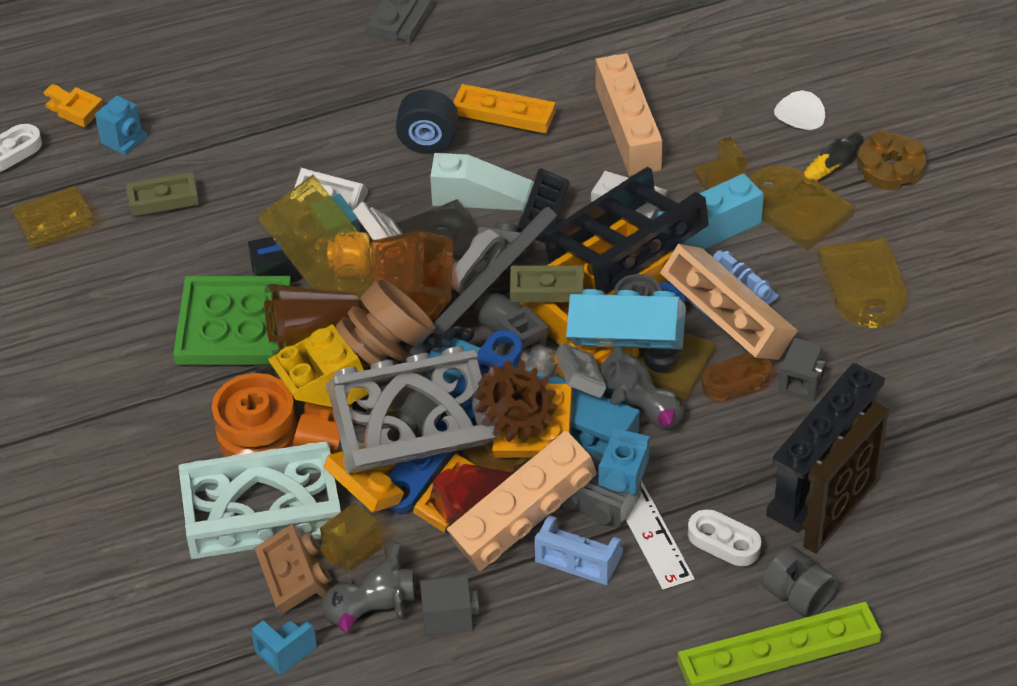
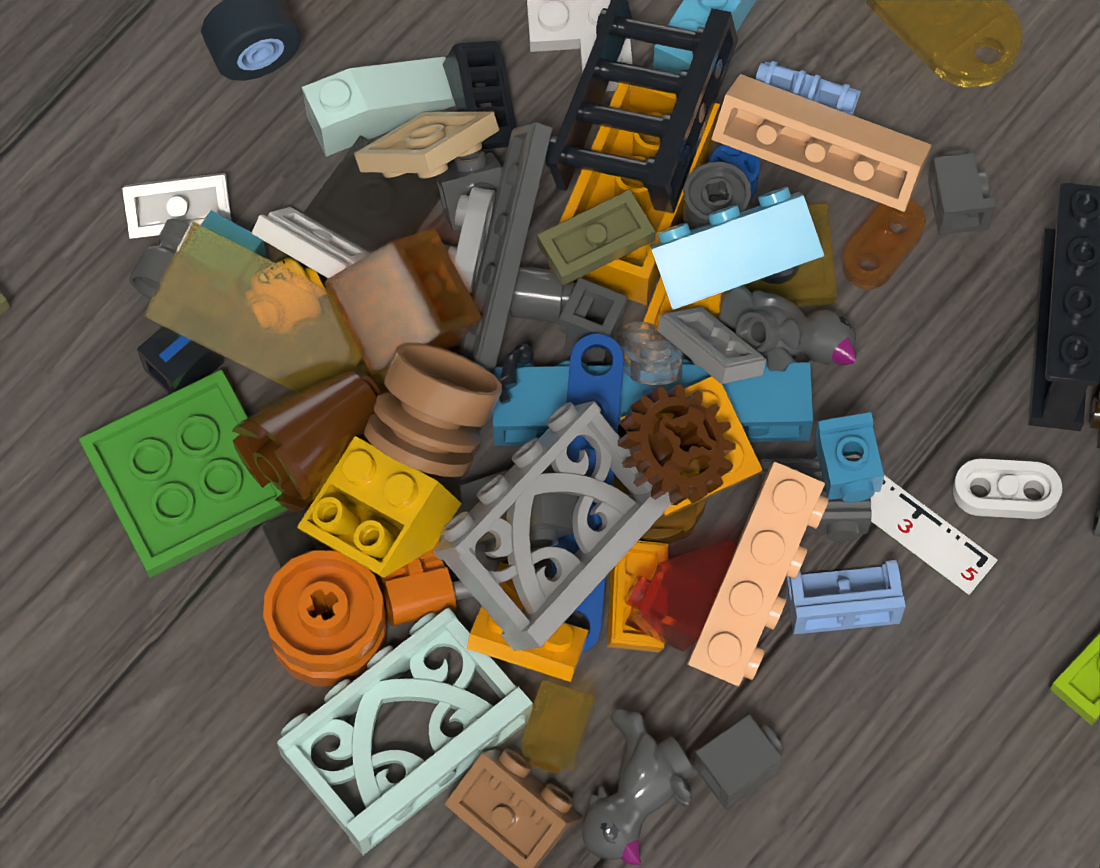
camera: 30 degrees left, 20 degrees up
(487, 209) = (427, 143): none -> tan plate

